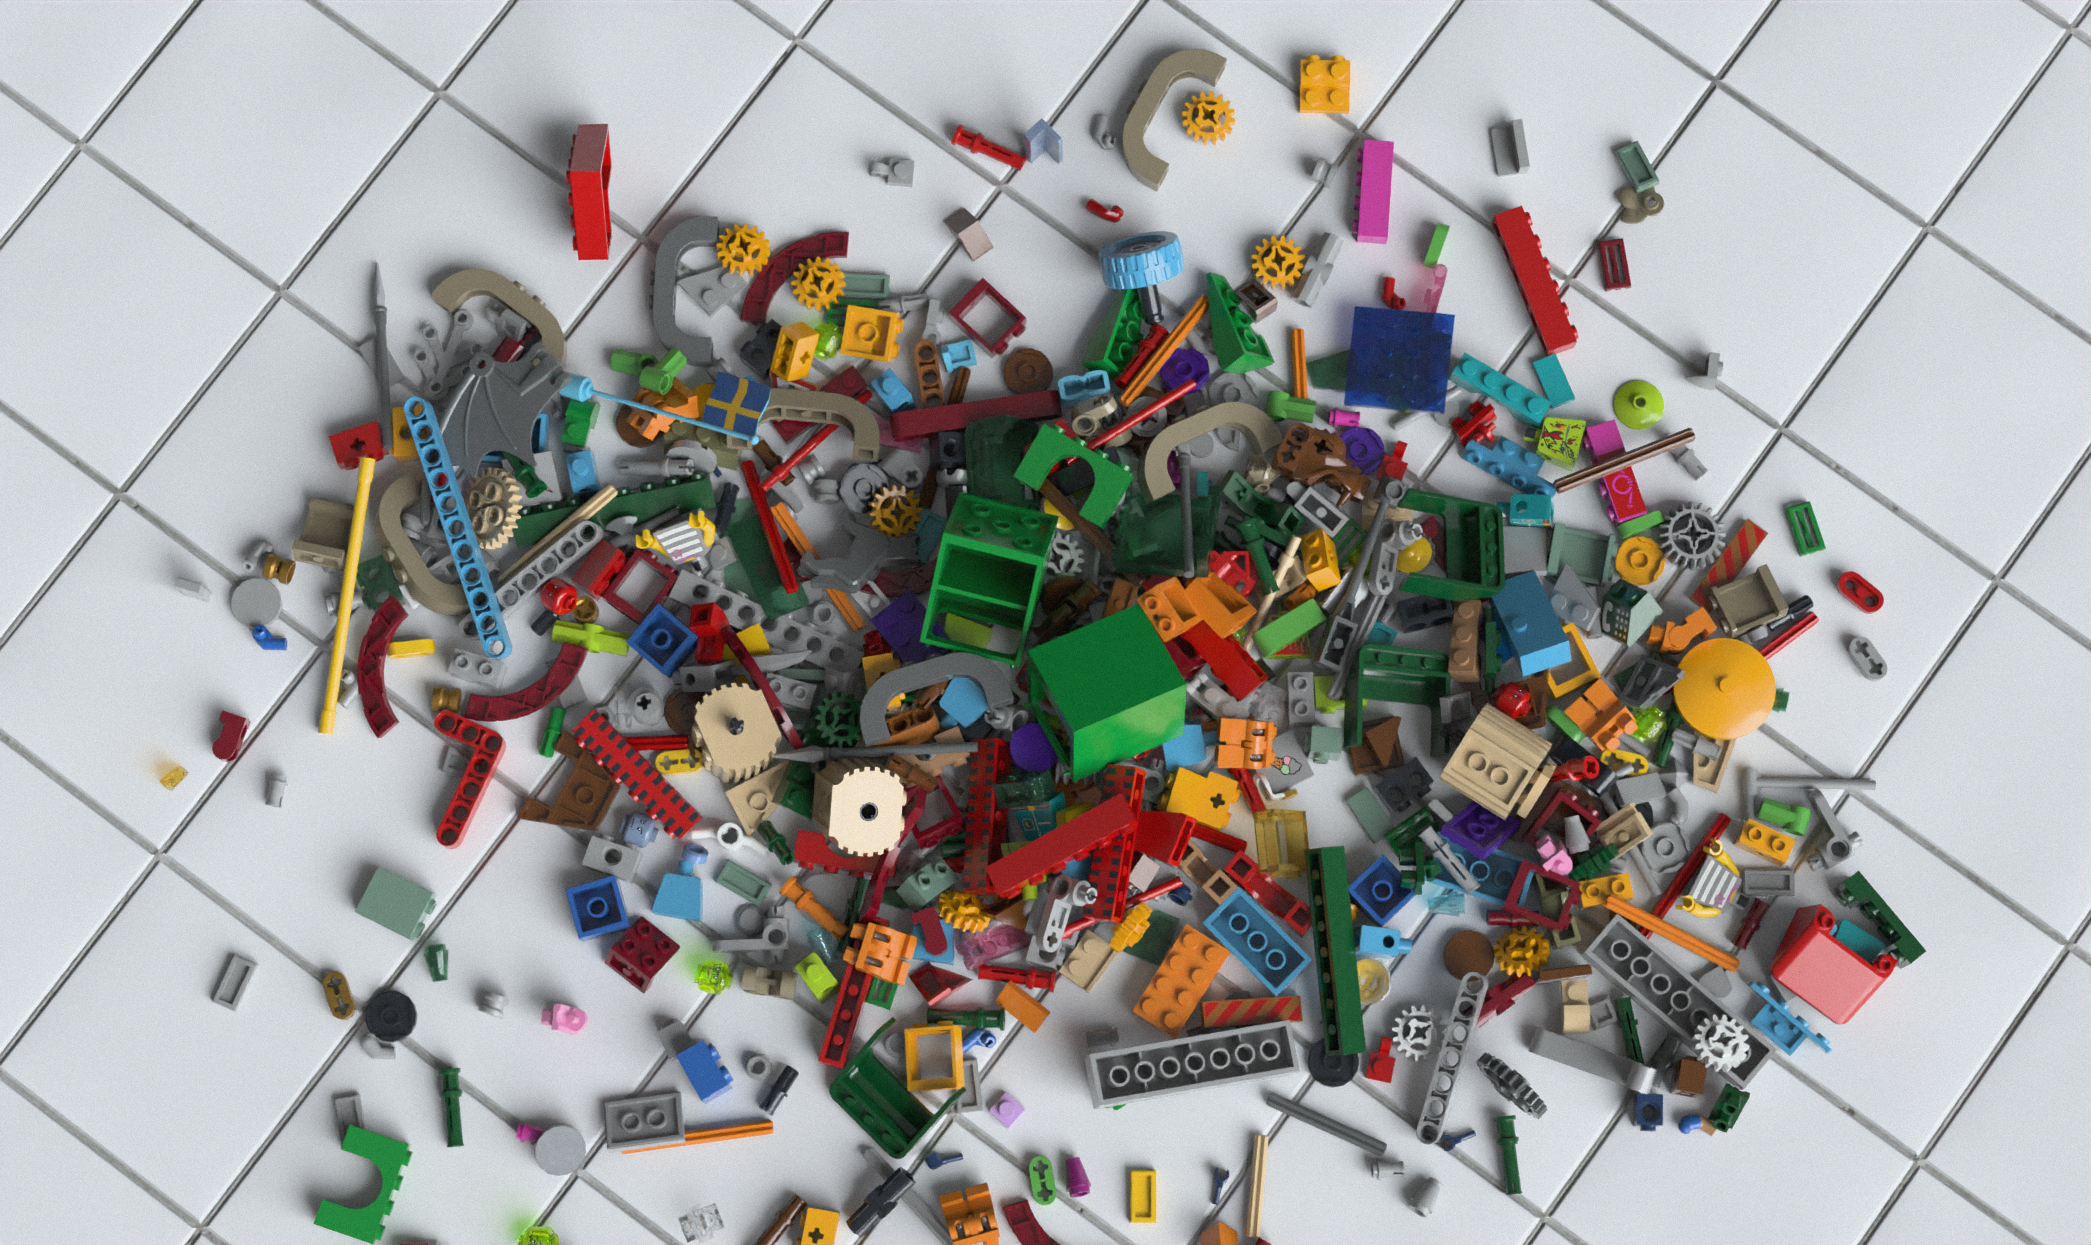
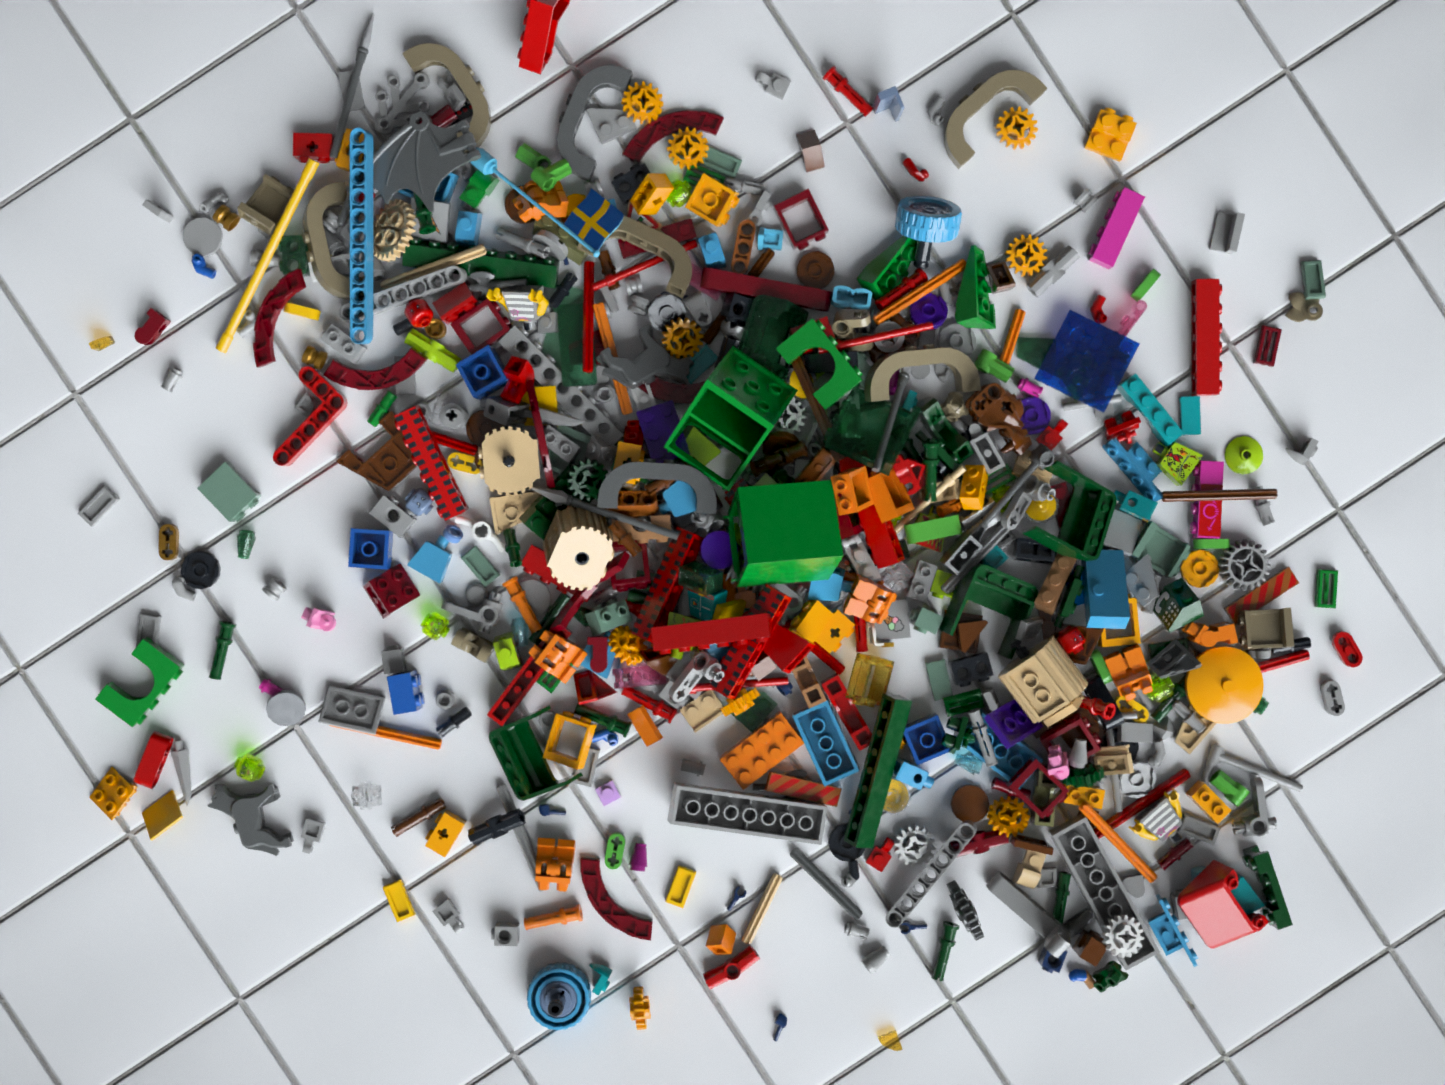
camera: 20 degrees right, 10 degrees up
(1356, 1100) = (852, 876): none -> arm

